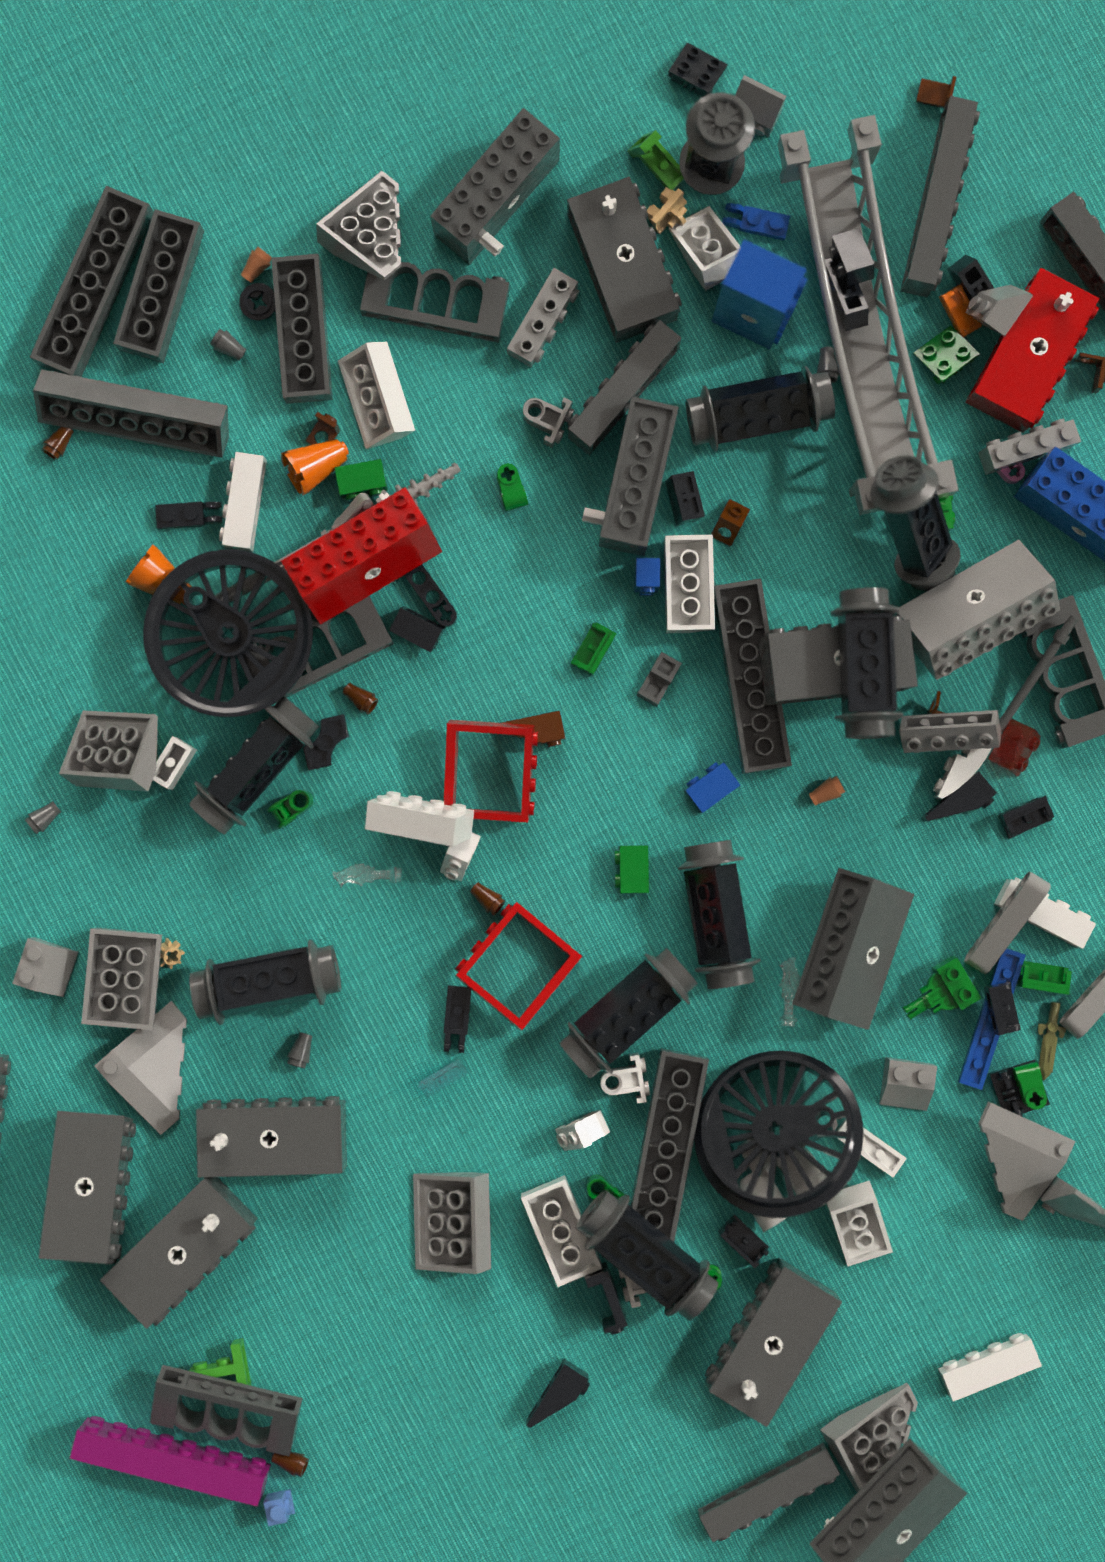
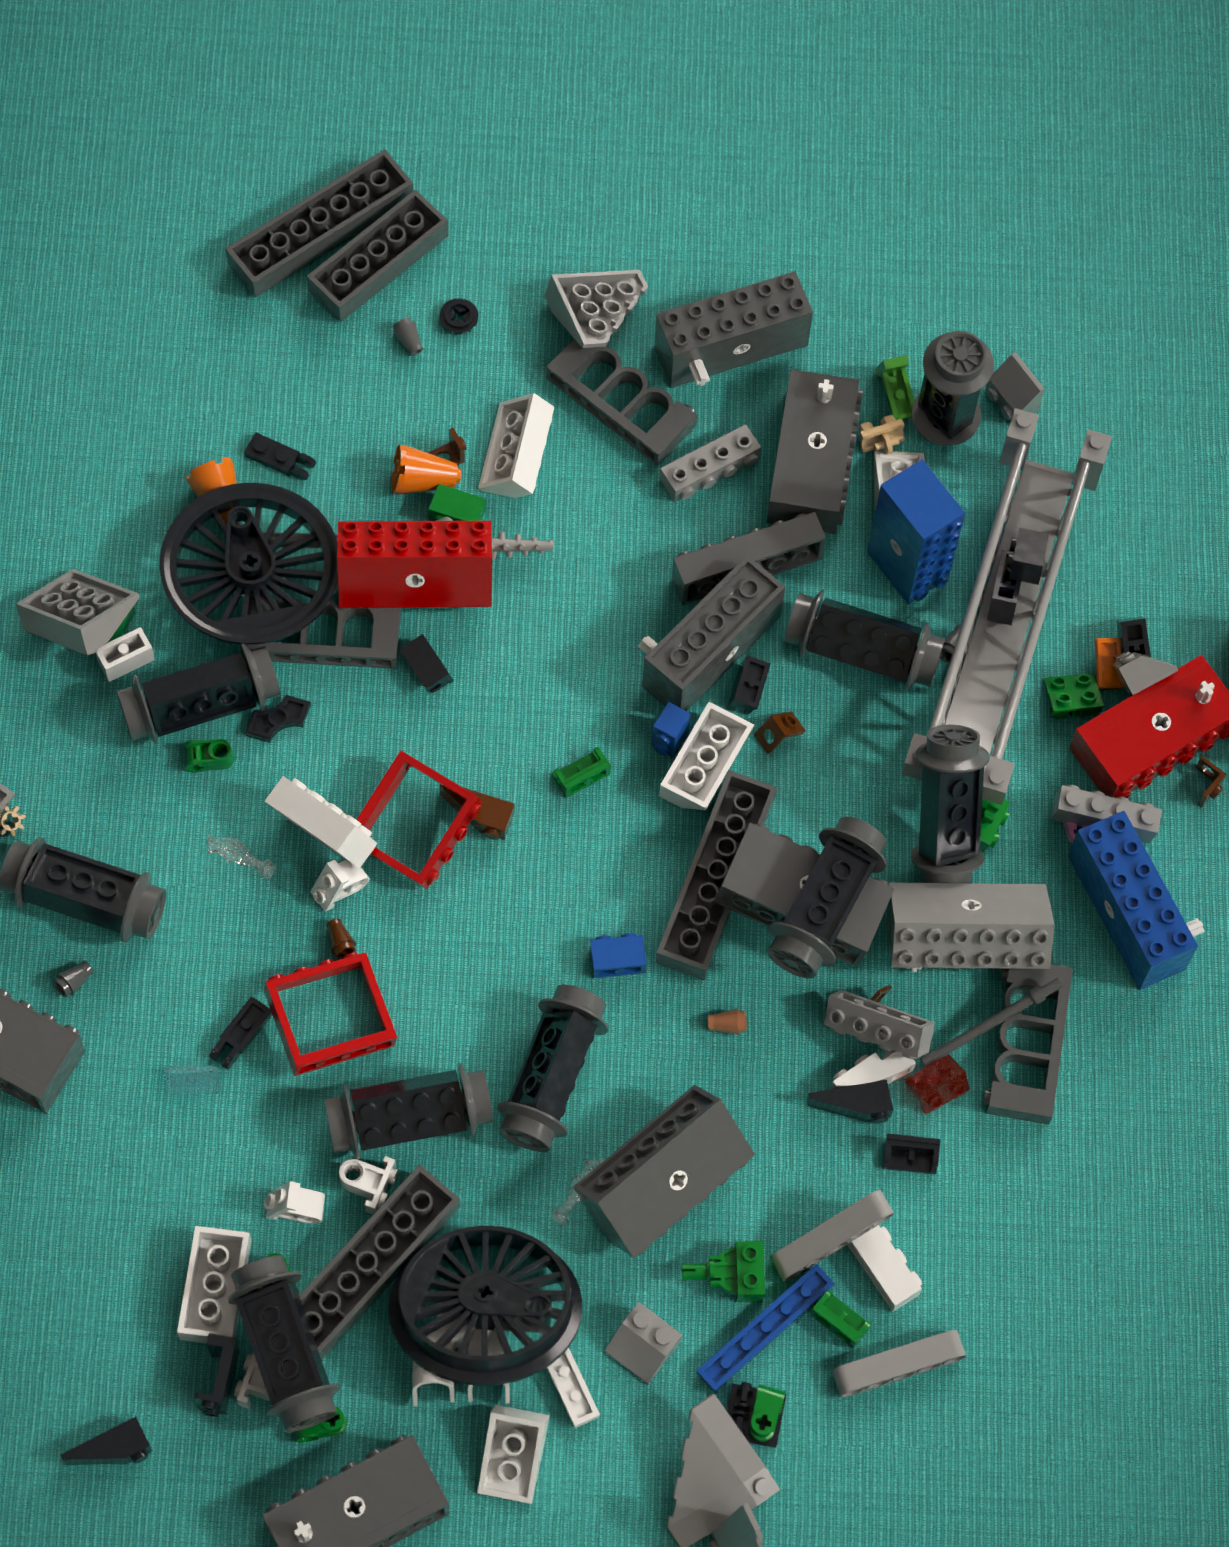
camera: 25 degrees right, 20 degrees down
(57, 443) = (202, 335): reddish brown cone -> none
(131, 413) = (285, 342): dark grey brick -> none
(243, 502) = (339, 468): white brick -> none
(256, 264) = (477, 284): nougat cone -> none
(302, 328) = (483, 356): dark grey brick -> none
(361, 698) = (336, 698): reddish brown cone -> none
(422, 591) = (454, 635): black beam -> none
(452, 1222) = (114, 1220): light grey slope -> none
(511, 491) = (590, 592): green piece -> none
(551, 418) = (661, 550): light grey pin -> none
(633, 869) = (496, 988): green brick -> none
(659, 679) = (627, 834): dark grey slope -> none
(697, 69) = (984, 328): black hinge -> none
(744, 1240) = (388, 1404): black hinge -> none
(758, 221) = (963, 490): blue hinge -> none
(935, 92) = (1191, 467): reddish brown bracket -> none
(939, 196) = (1142, 552): dark grey brick -> none
(1002, 1008) = (781, 1317): black hinge -> none
(1049, 1040) = (812, 1386): olive sword -> none

